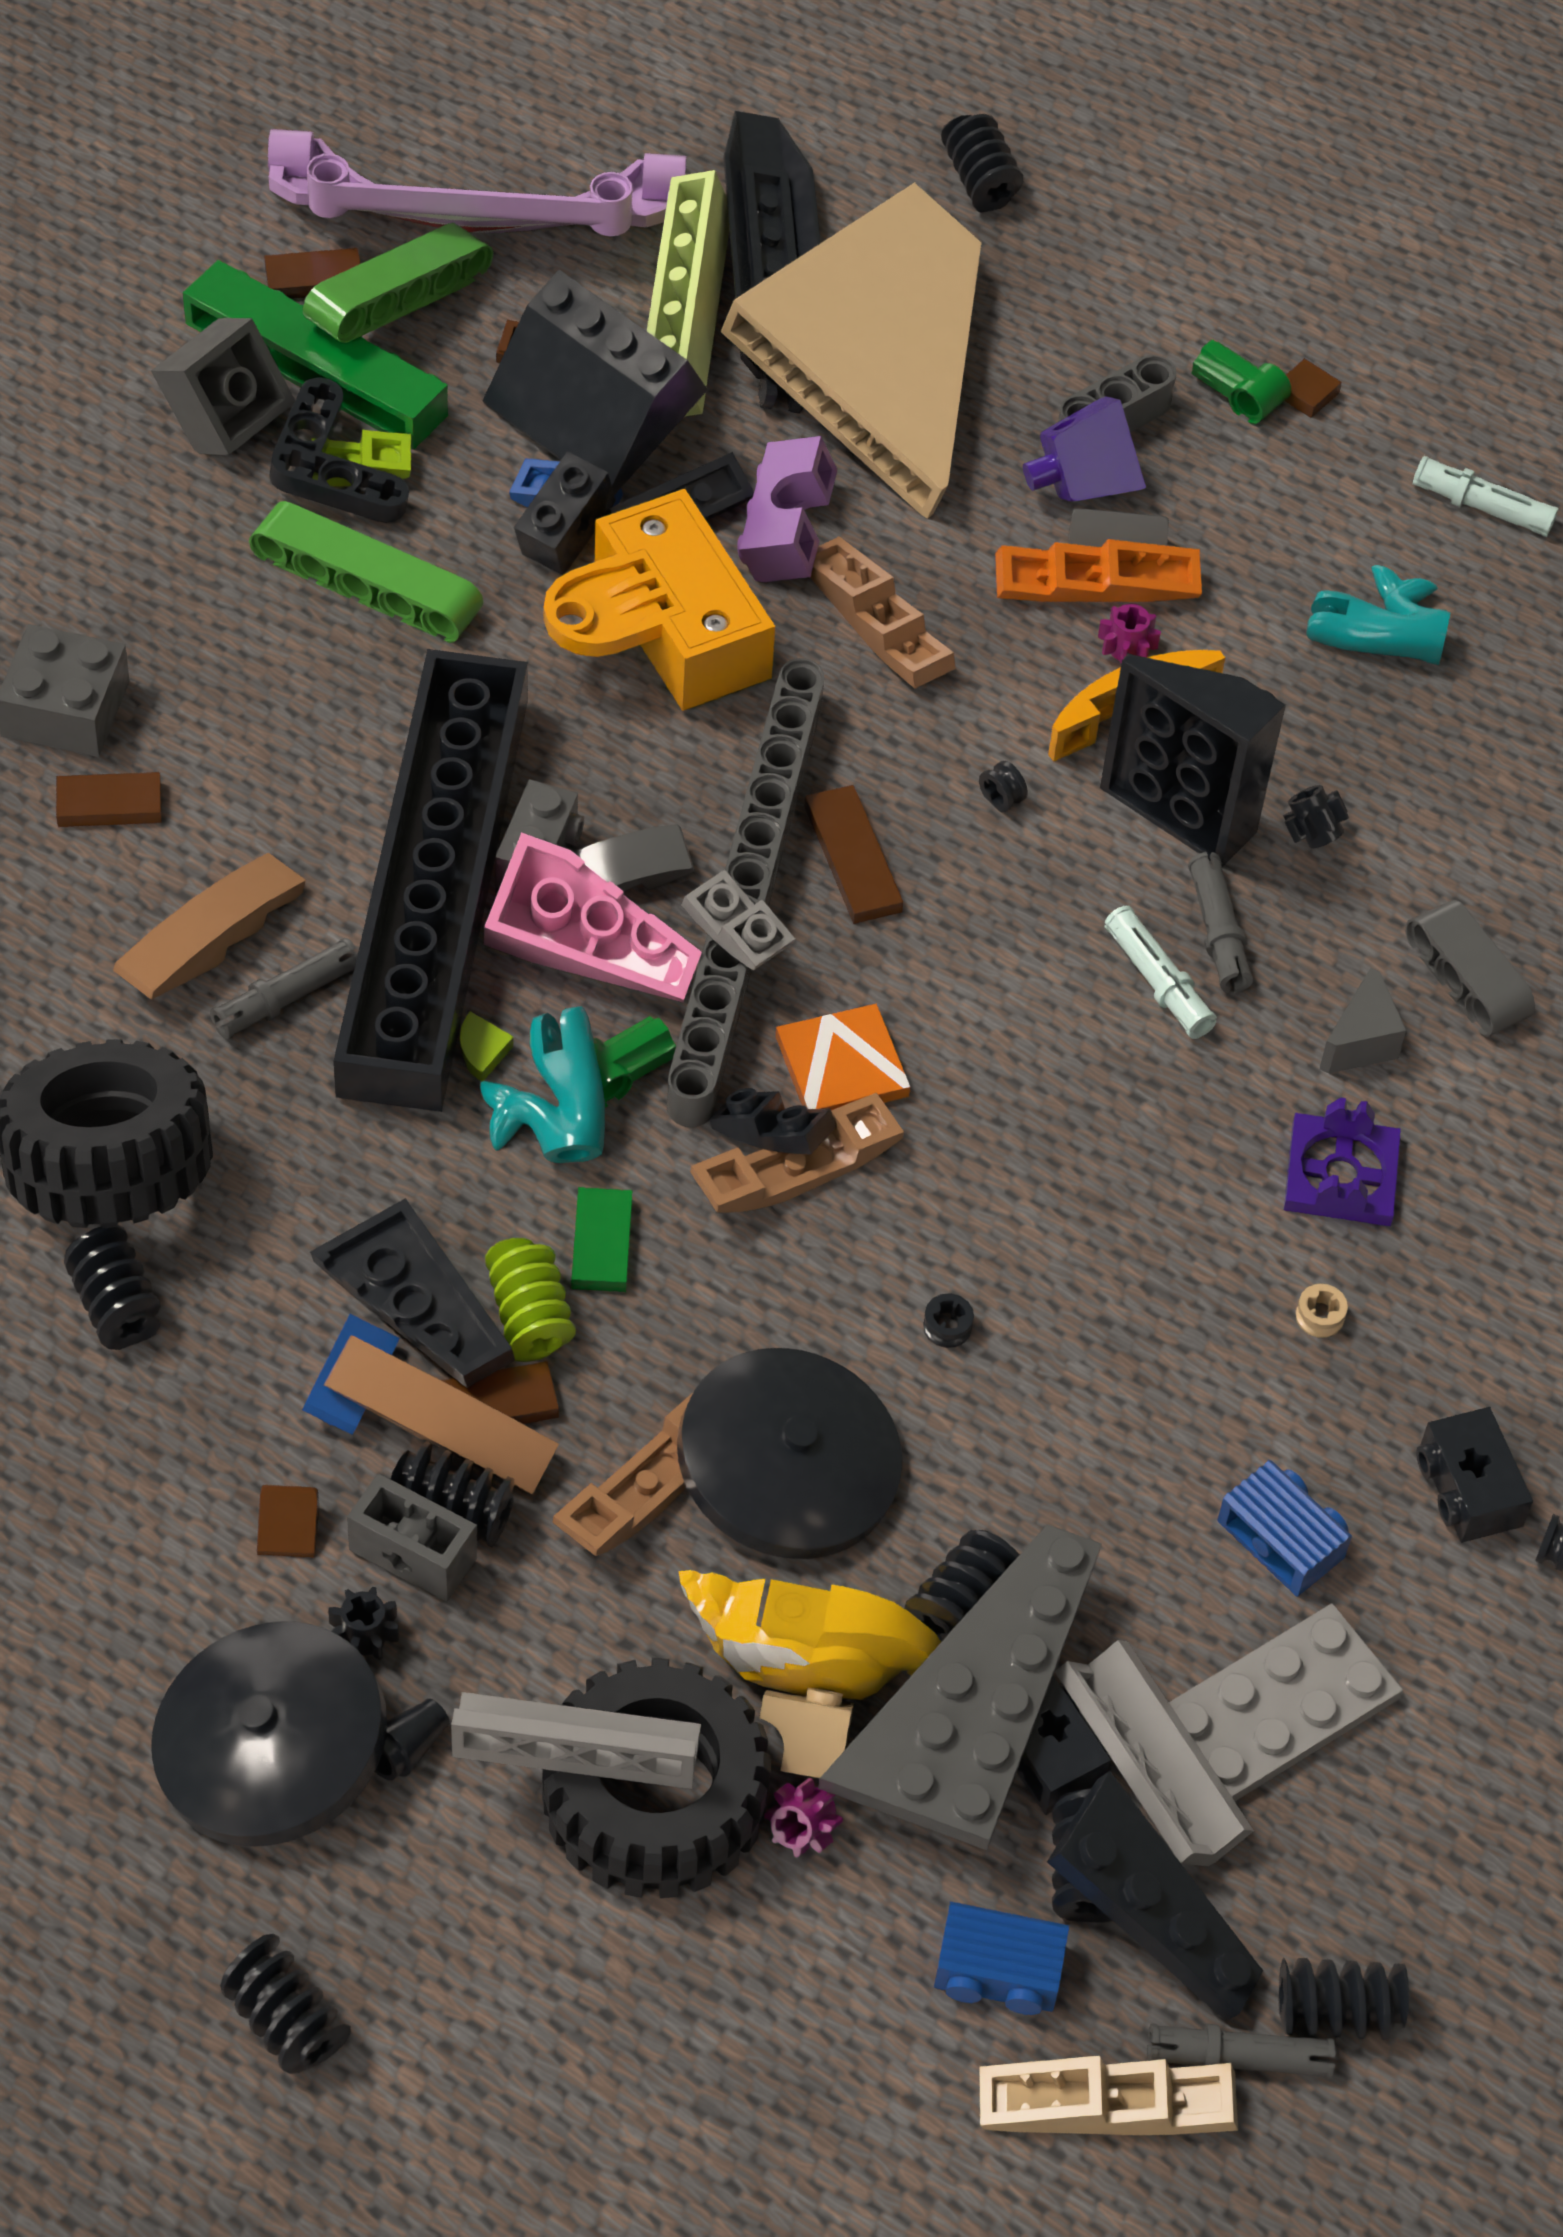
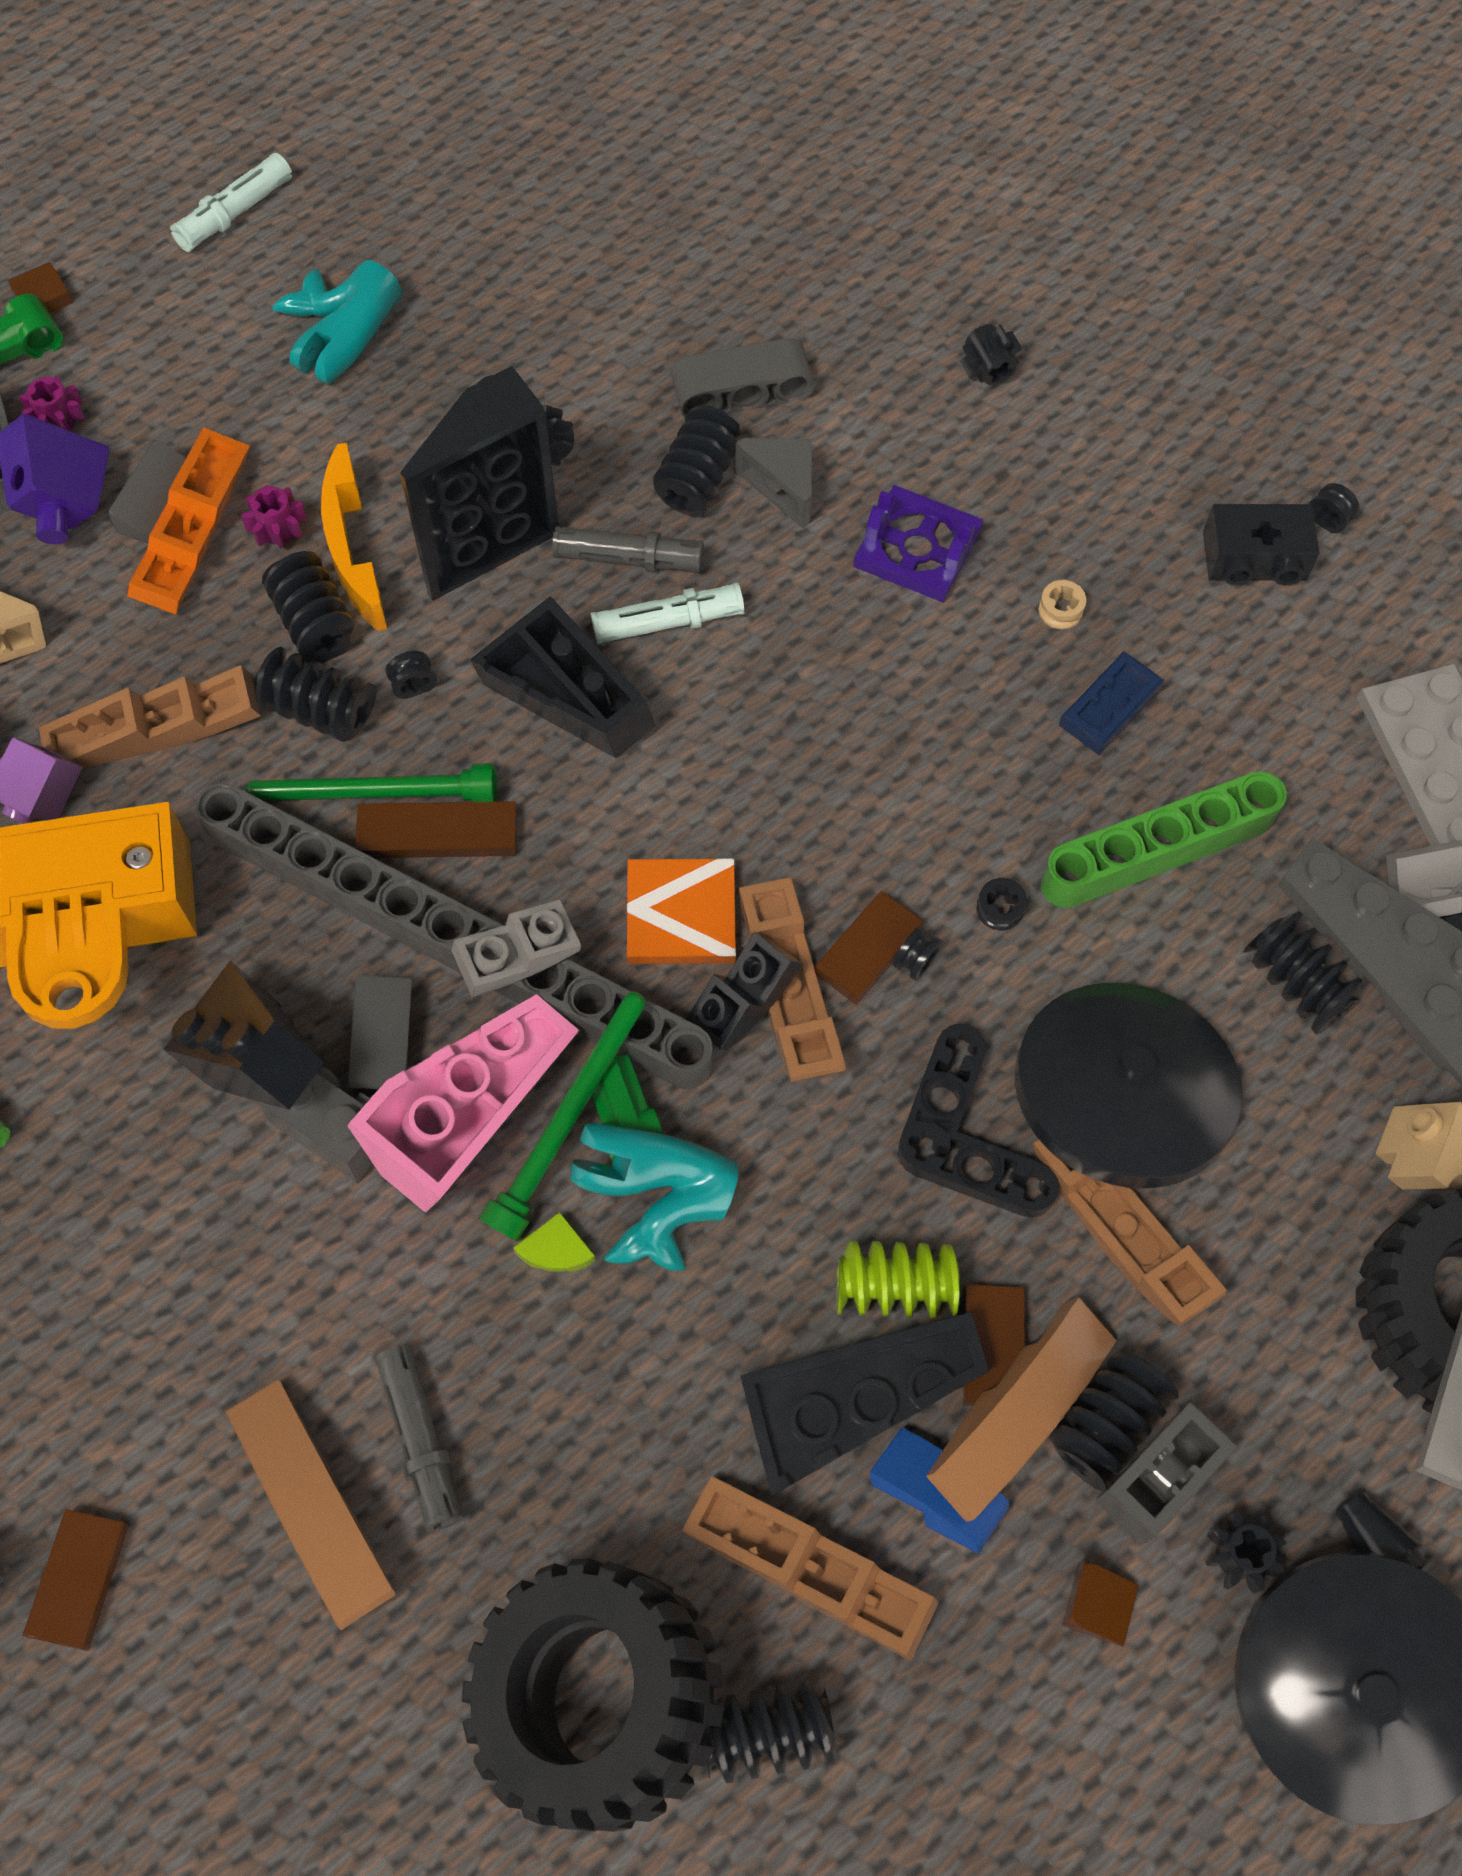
camera: 70 degrees left, 10 degrees up
(256, 1295) = (811, 1567): none -> medium nougat slope
(432, 882) = (338, 1237): black brick -> none
(499, 998) = (509, 1210): none -> green piece
(578, 752) = (244, 1042): none -> black wedge
(601, 1239) = (827, 1192): green tile -> none
(693, 1318) = (943, 1131): none -> black beam
(808, 1634) = (1341, 1124): yellow animal -> none
(861, 1220) = (867, 947): none -> reddish brown tile
(865, 1255) = (917, 953): none -> black bush
(908, 867) = (473, 784): none -> green piece
(947, 716) = (312, 697): none -> black piece
(1038, 687) = (309, 606): none -> black piece
(1043, 901) = (565, 680): none -> black wedge
(1067, 1418) = (1179, 823): none -> bright green beam
(1174, 435) = (52, 402): none -> magenta gear
(1217, 1373) = (1111, 702): none -> dark blue plate
(1285, 1527) = (1284, 698): blue brick -> none
(1342, 947) = (697, 460): none -> black piece

